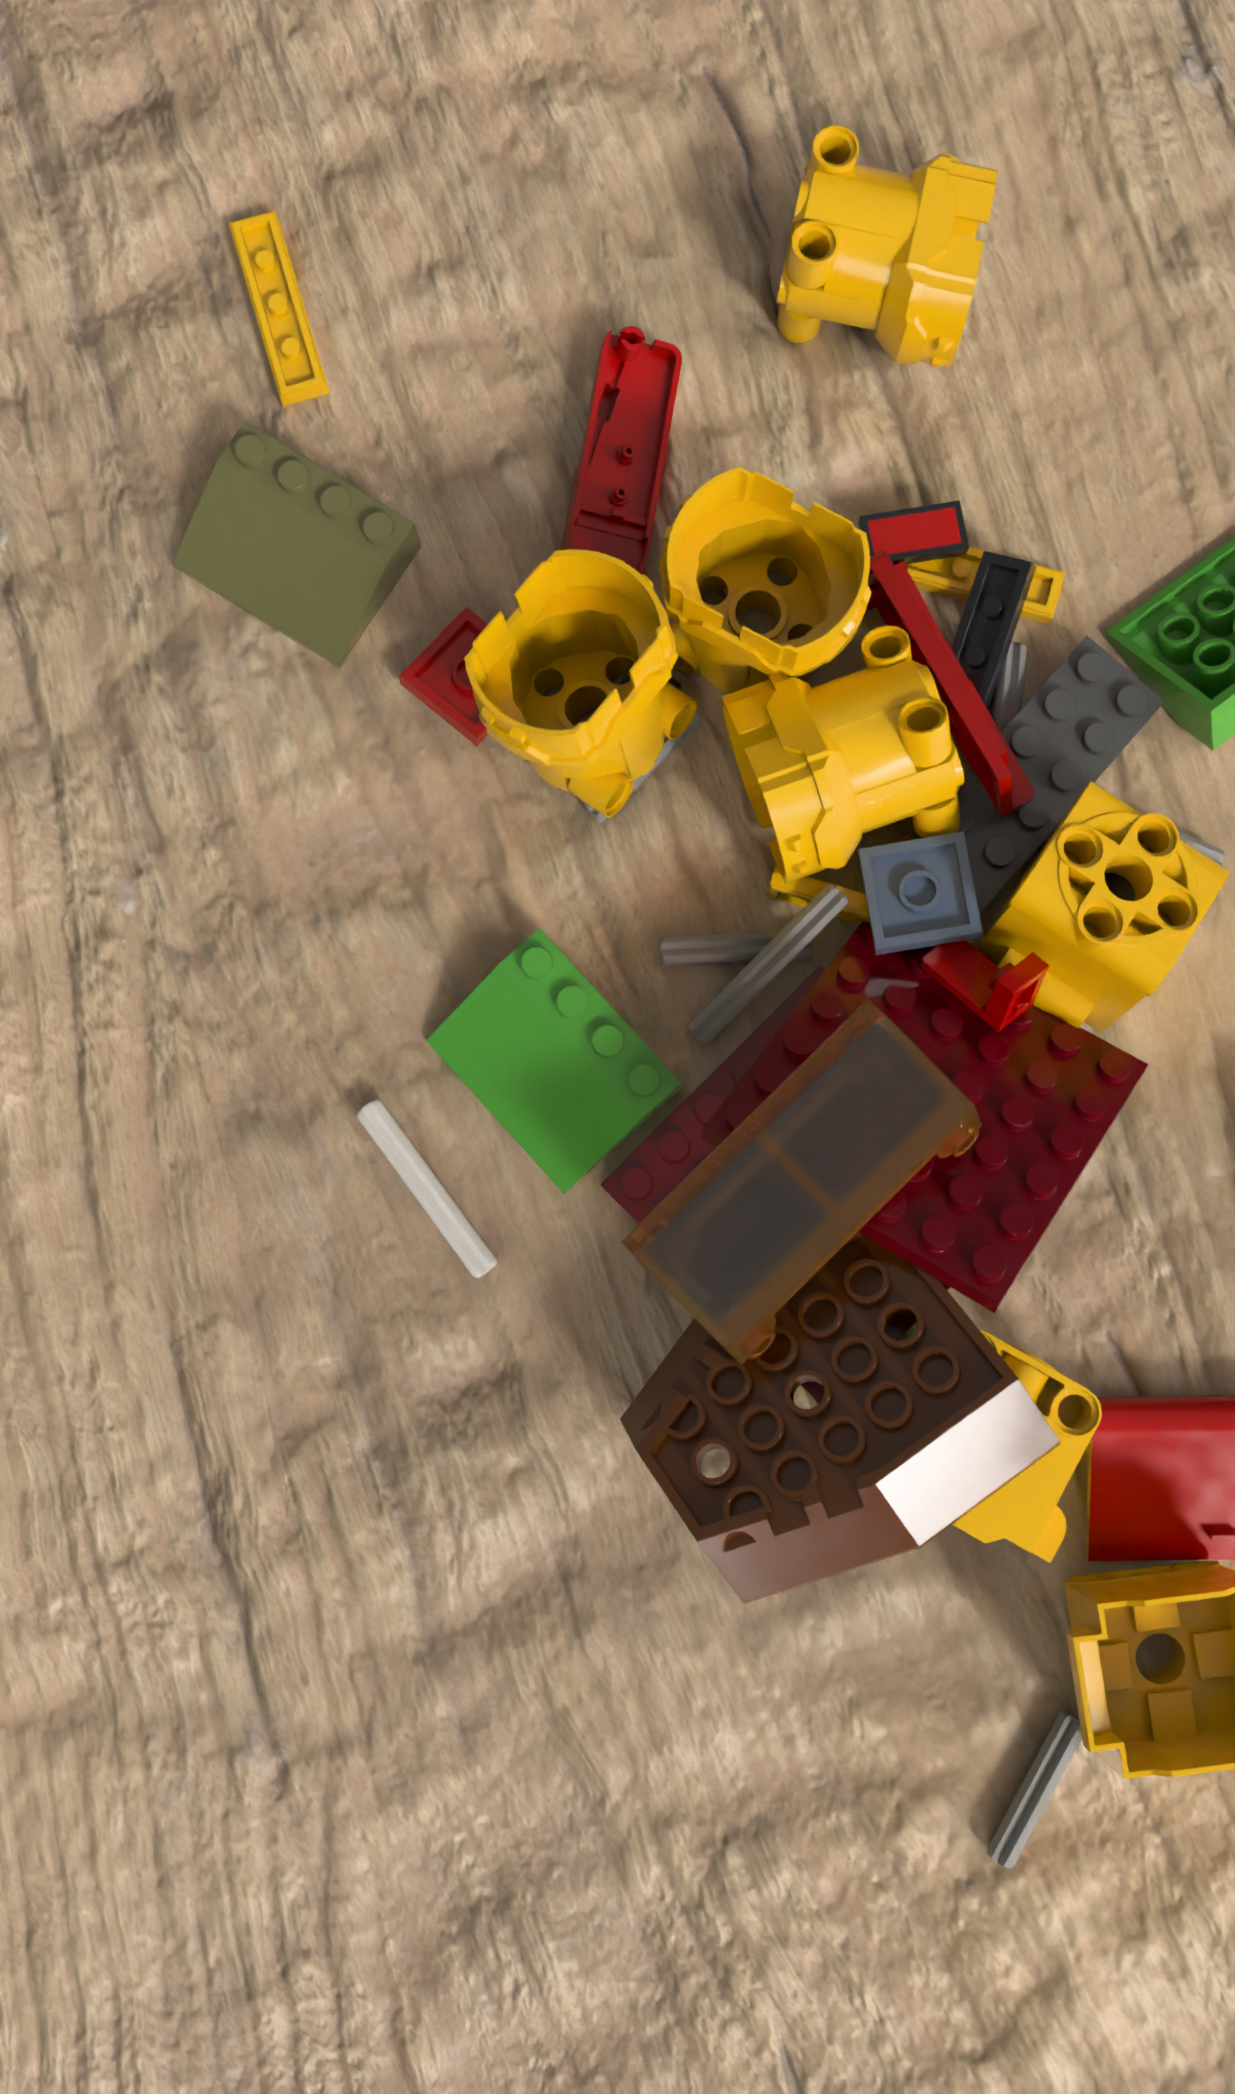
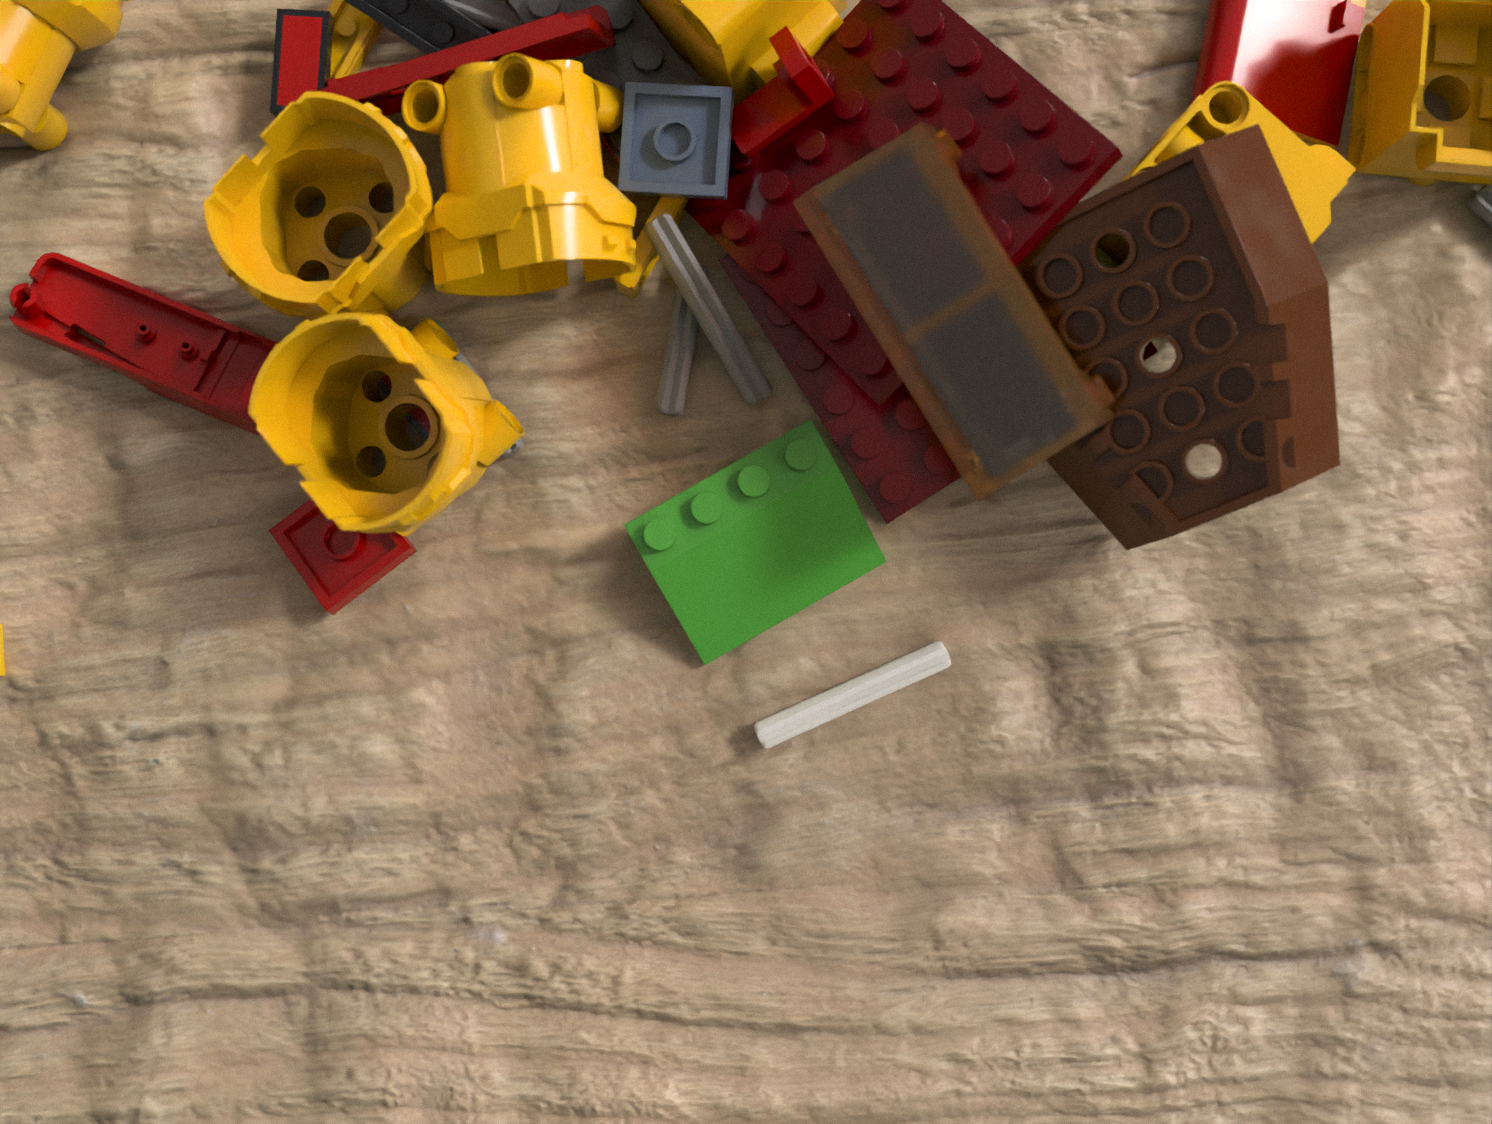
camera: 75 degrees left, 5 degrees up
(295, 544) = (159, 692): olive slope -> none

